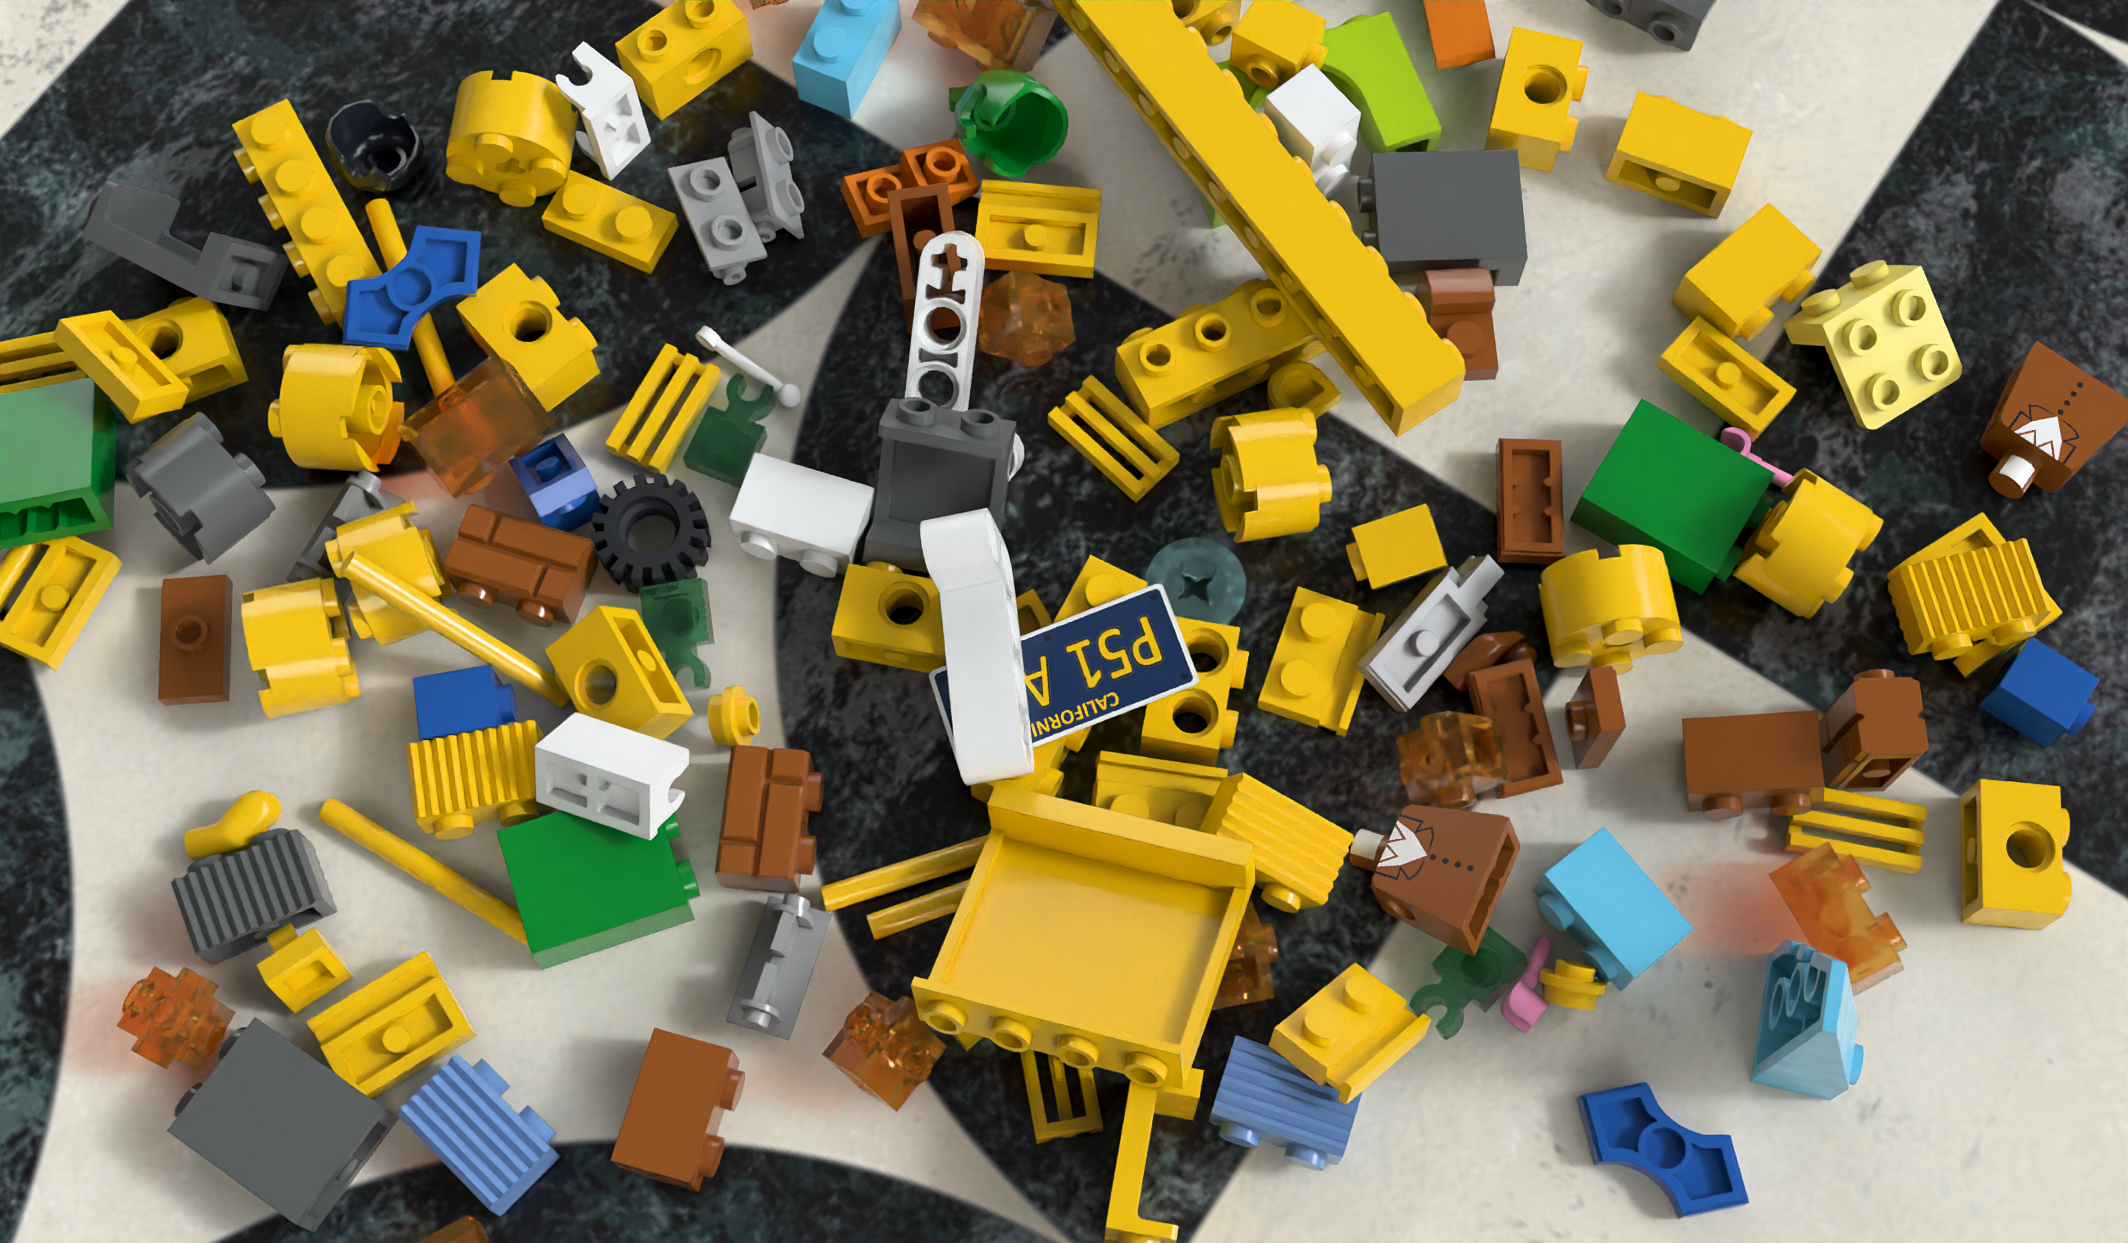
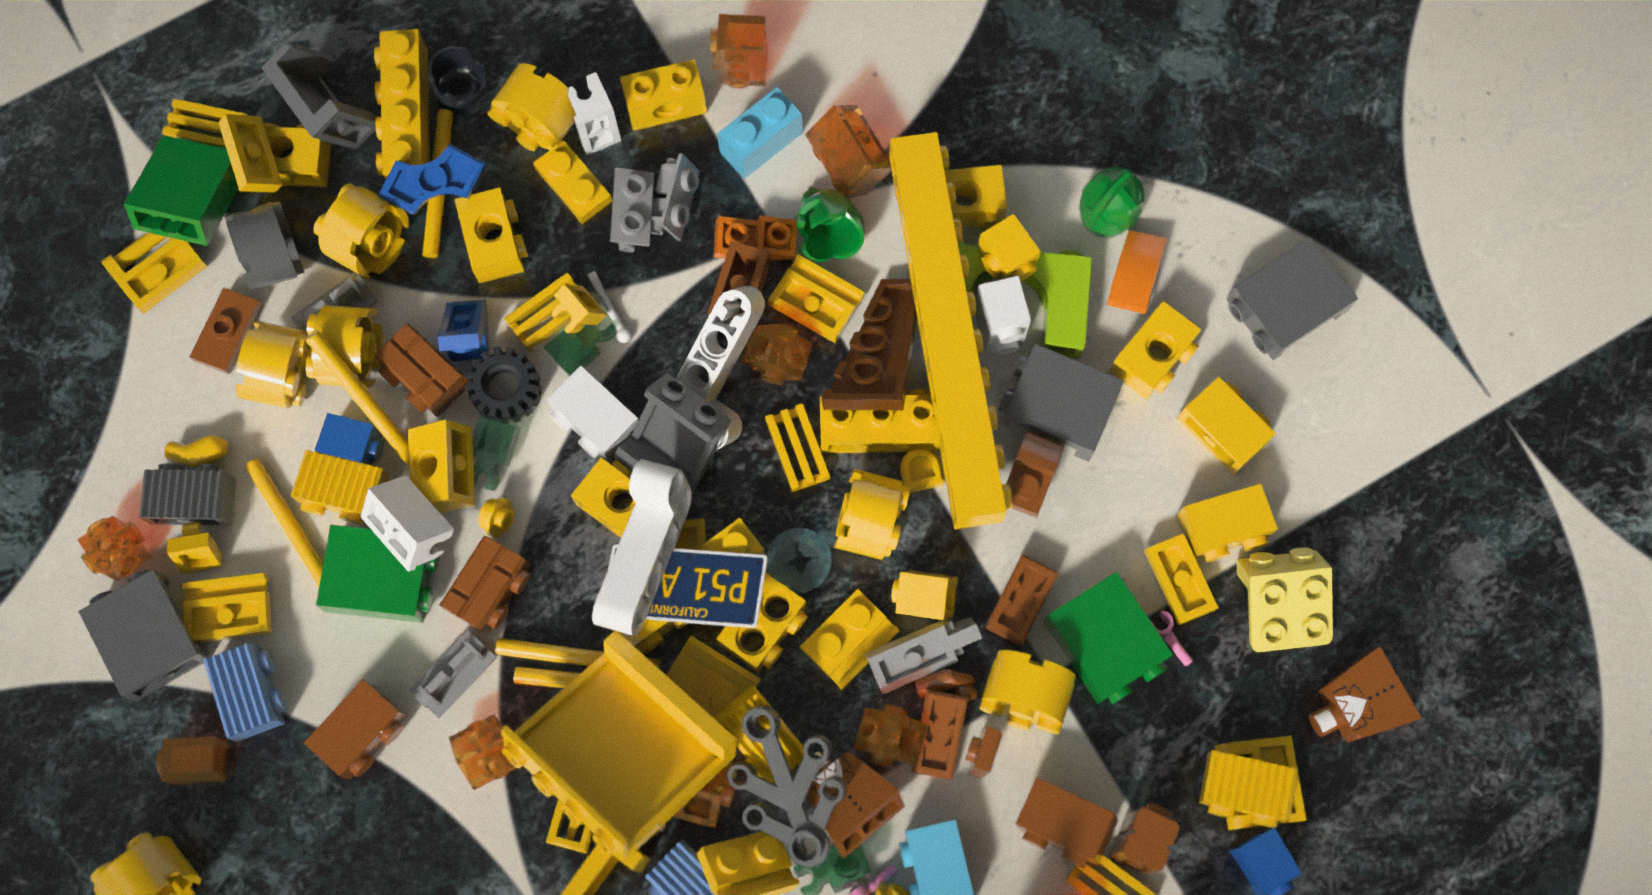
camera: 25 degrees right, 5 degrees up
(476, 427) = (432, 277): clear orange brick -> none
(711, 374) = (579, 305): none -> yellow tile
(1168, 255) = (879, 354): none -> reddish brown wing
(1359, 893) = (788, 792): none -> dark grey plant
(1805, 545) = (1168, 707): yellow brick -> none

